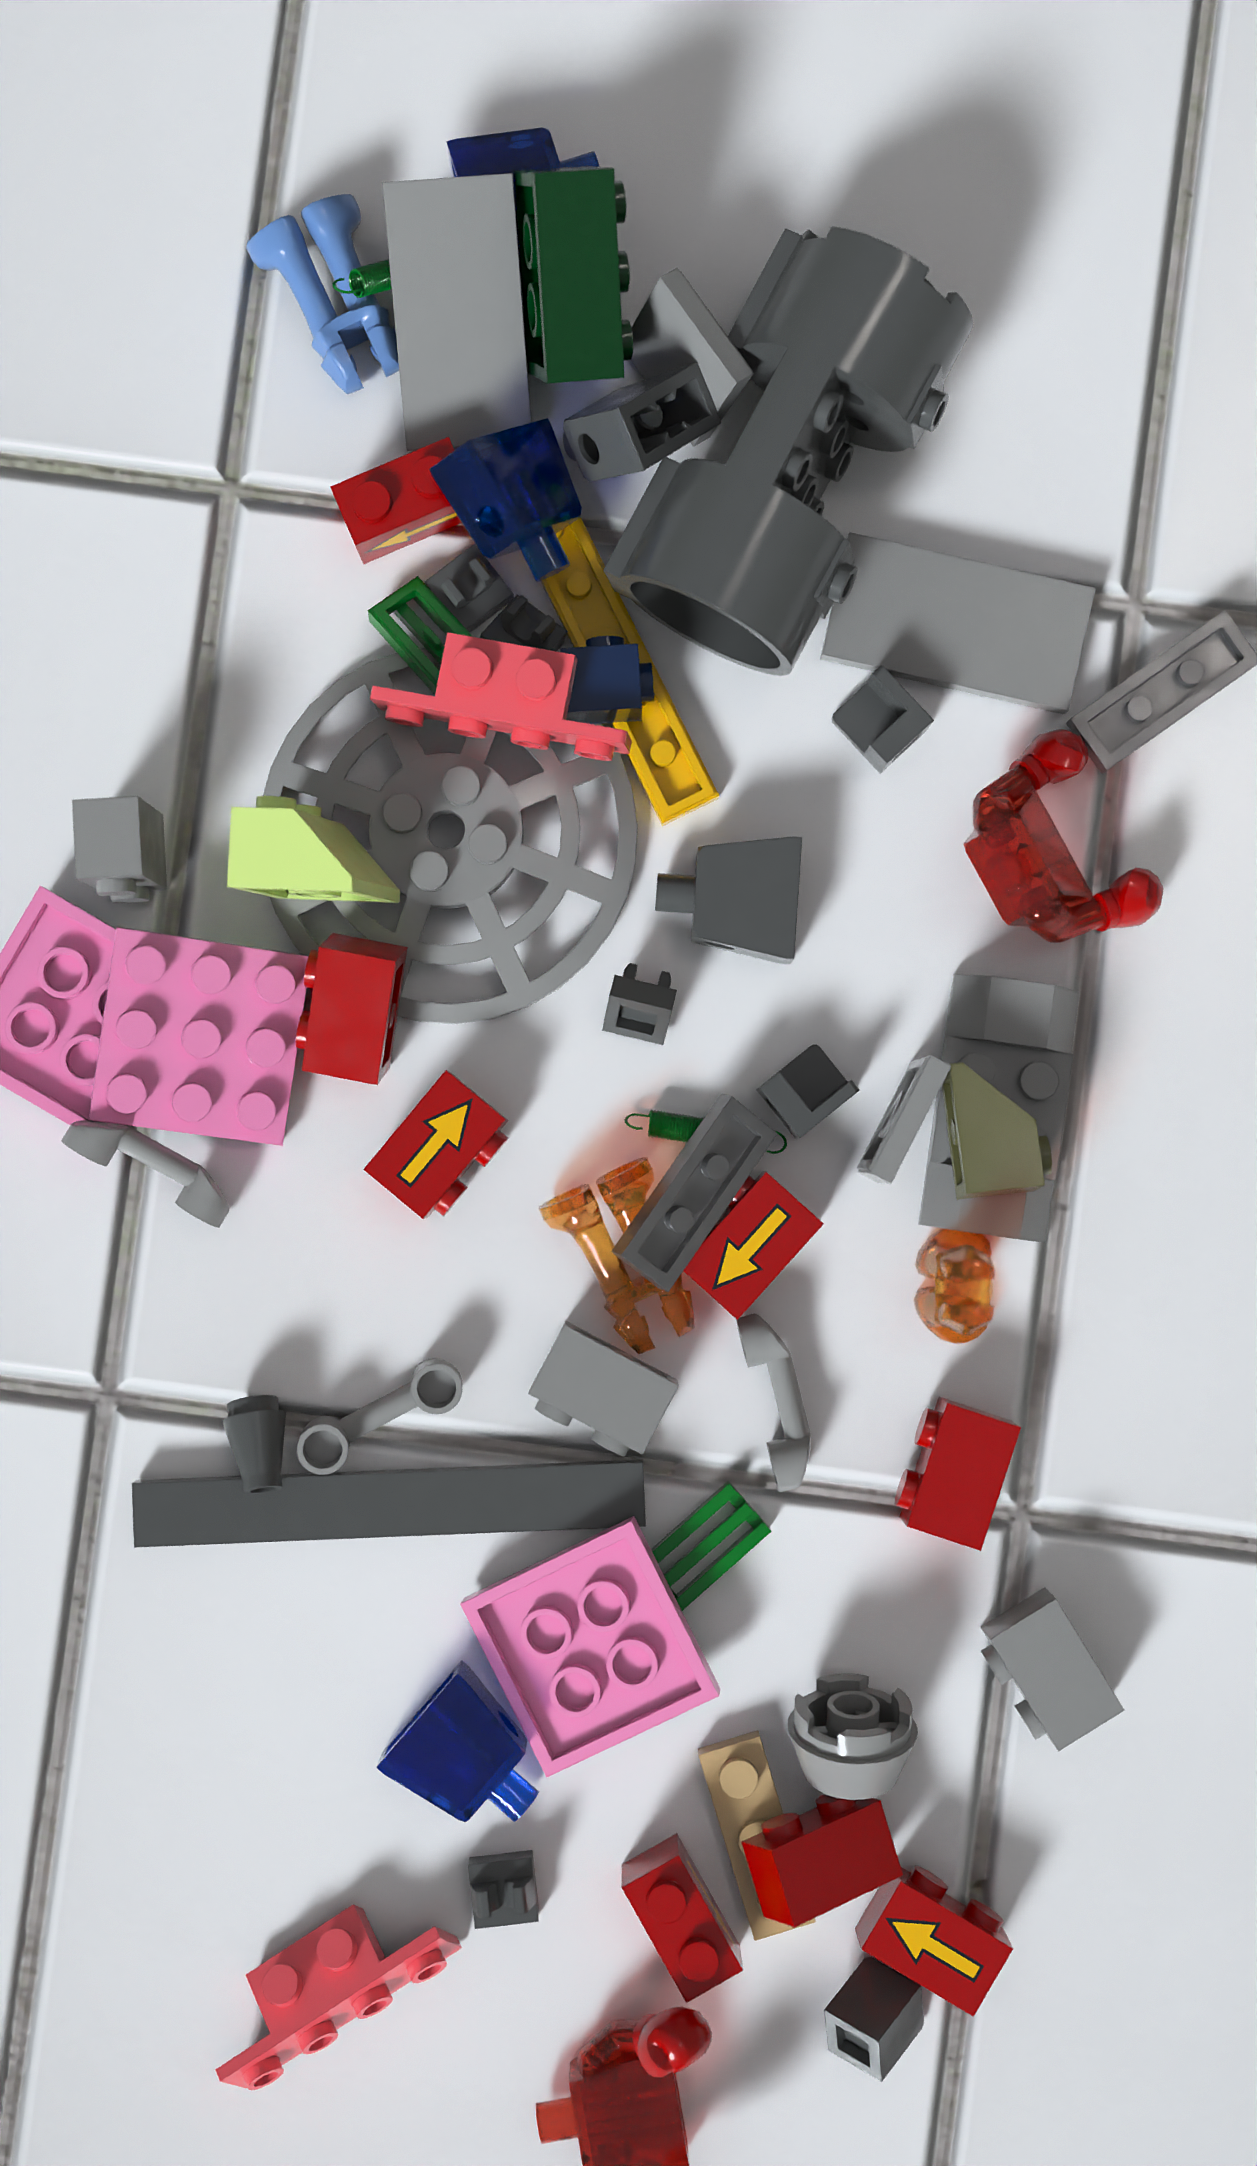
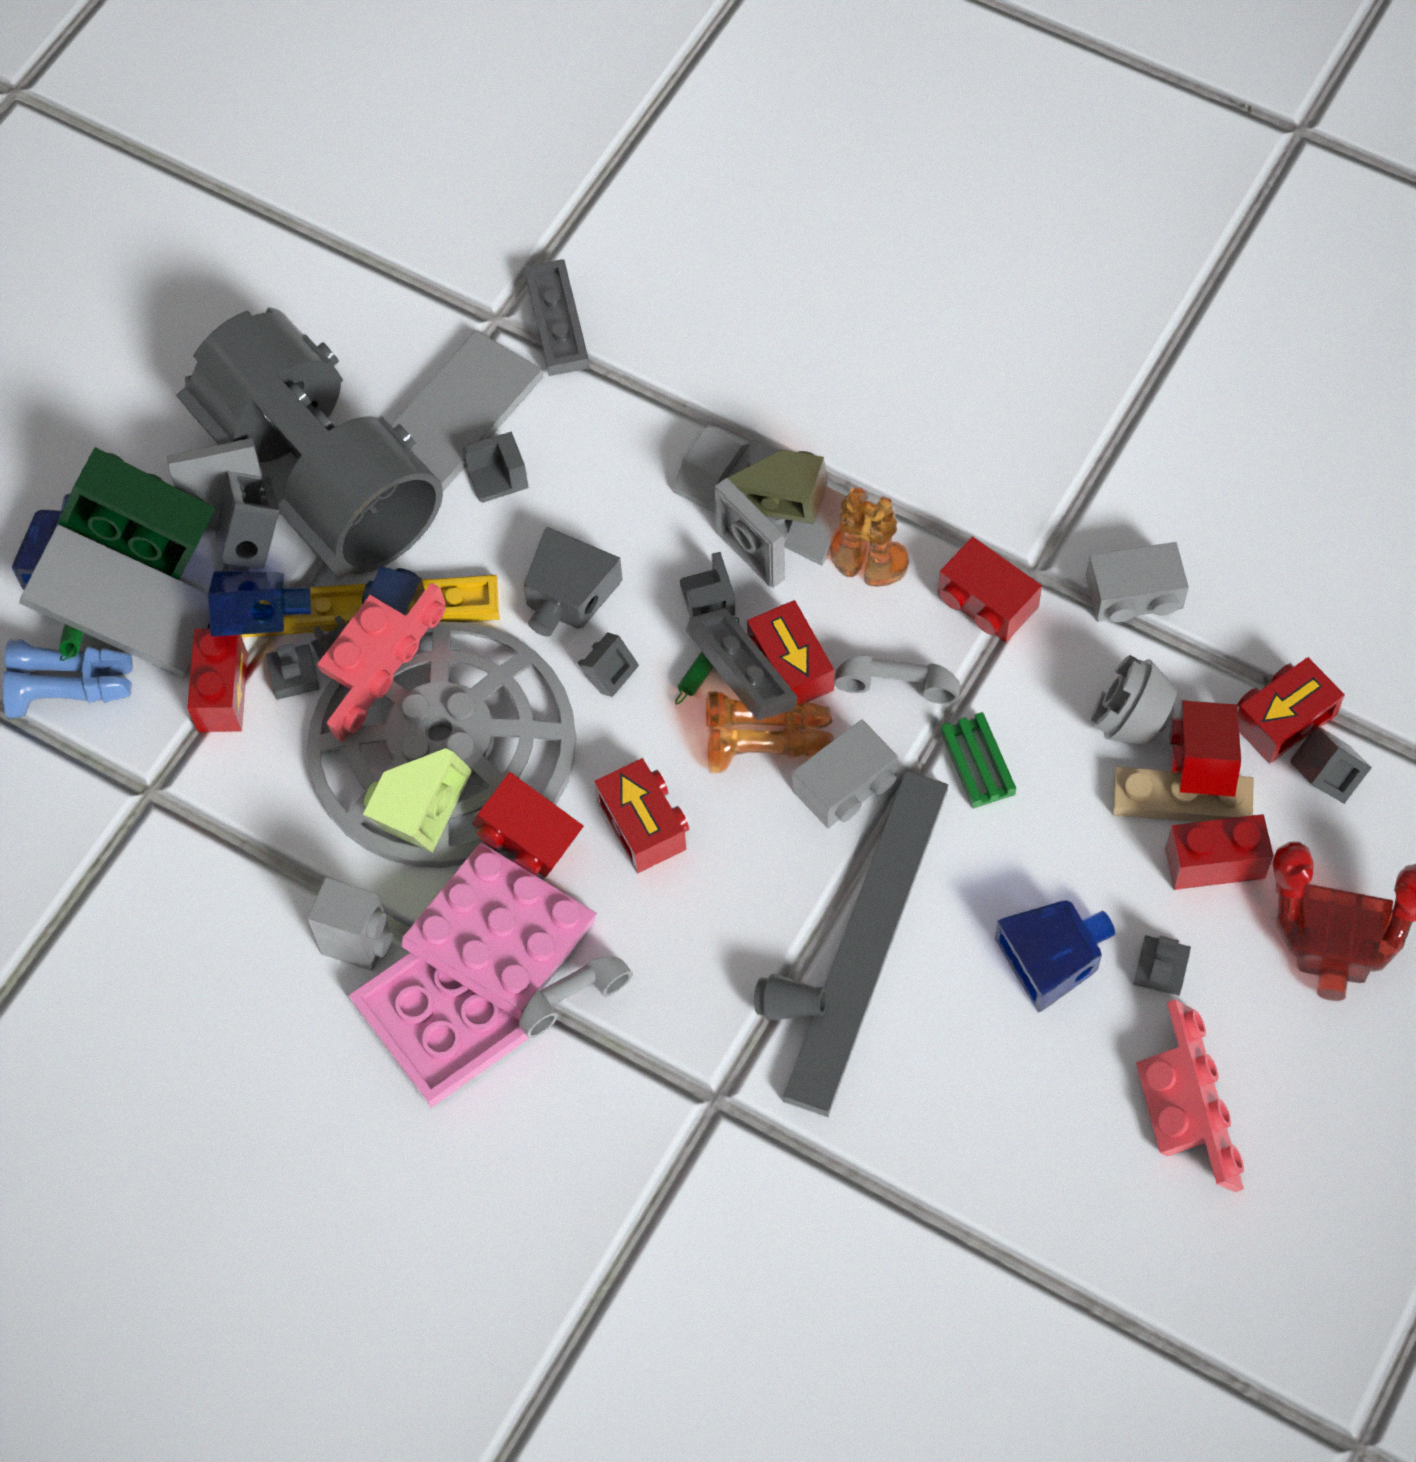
camera: 60 degrees left, 25 degrees down
(326, 1440) = (798, 882): light grey bar -> none
(397, 603) = (313, 708): green tile -> none
(590, 1646) = (1014, 842): bright pink plate -> none
(1028, 862) = (623, 412): clear red torso -> none

